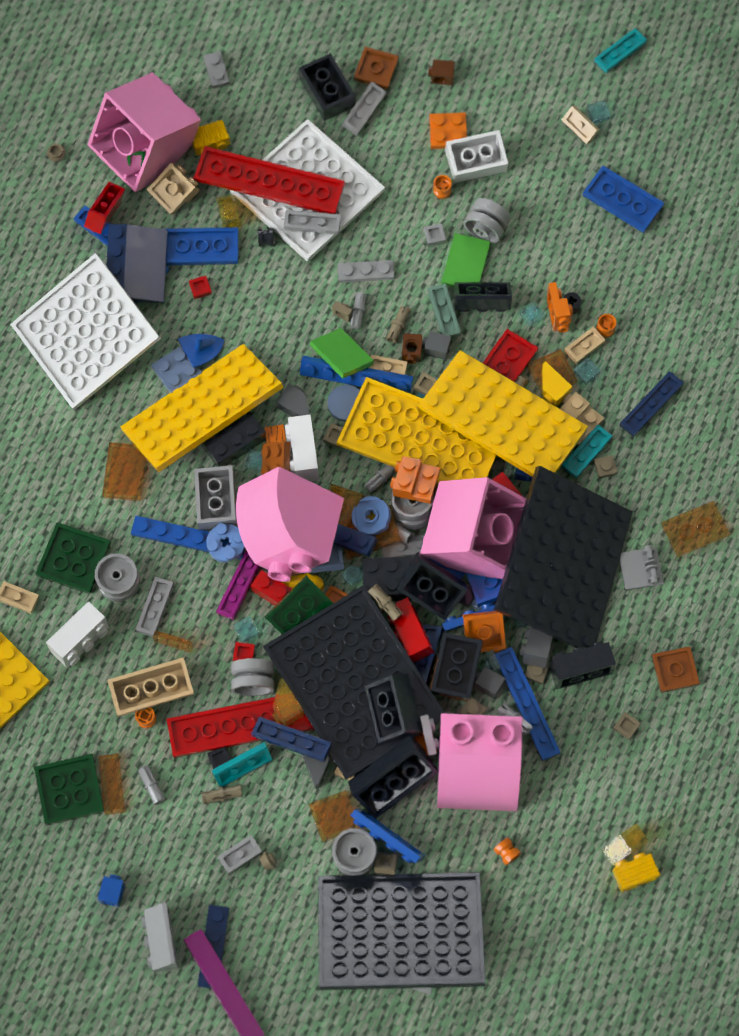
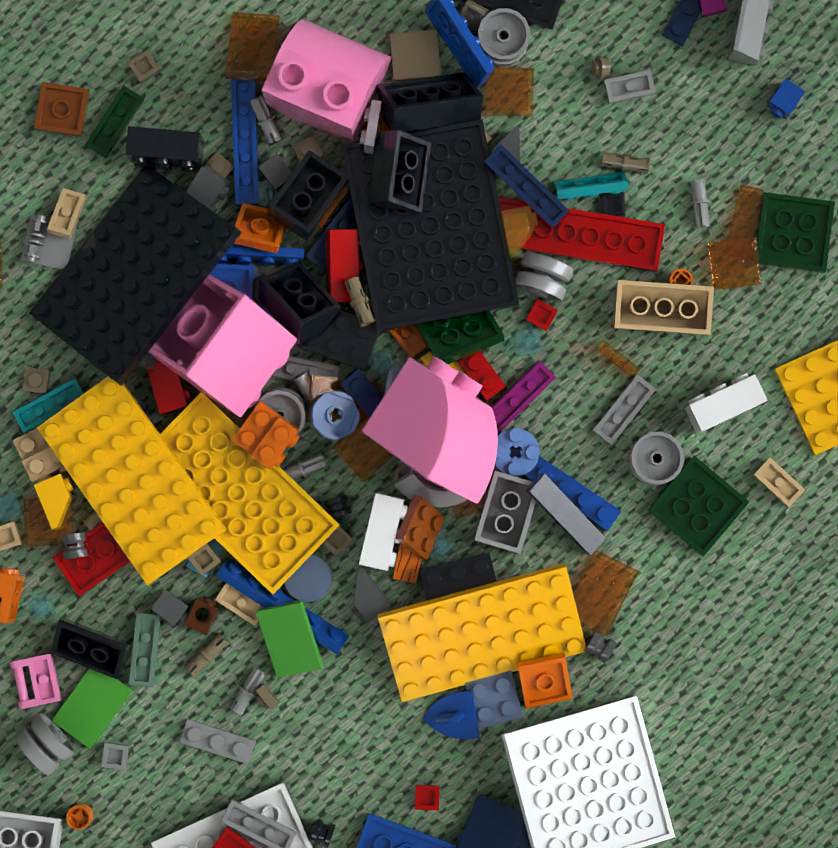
camera: 155 degrees left, 15 degrees up
(107, 746) = (734, 263): none -> clear orange tile
(111, 432) = (599, 646): none -> dark grey wheel
(143, 393) = (544, 680): none -> orange plate
(171, 511) = (565, 514): none -> tile
(343, 458) = (338, 506): none -> black wheel
(419, 816) = (415, 55): none -> dark tan tile
(509, 267) = (43, 680): none -> bright pink plate
(524, 357) = (74, 551): none -> dark grey wheel
(549, 772) = (252, 46): none -> clear orange tile
(630, 675) = (114, 121): none -> dark green plate
(636, 592) = (66, 213): none -> tan plate

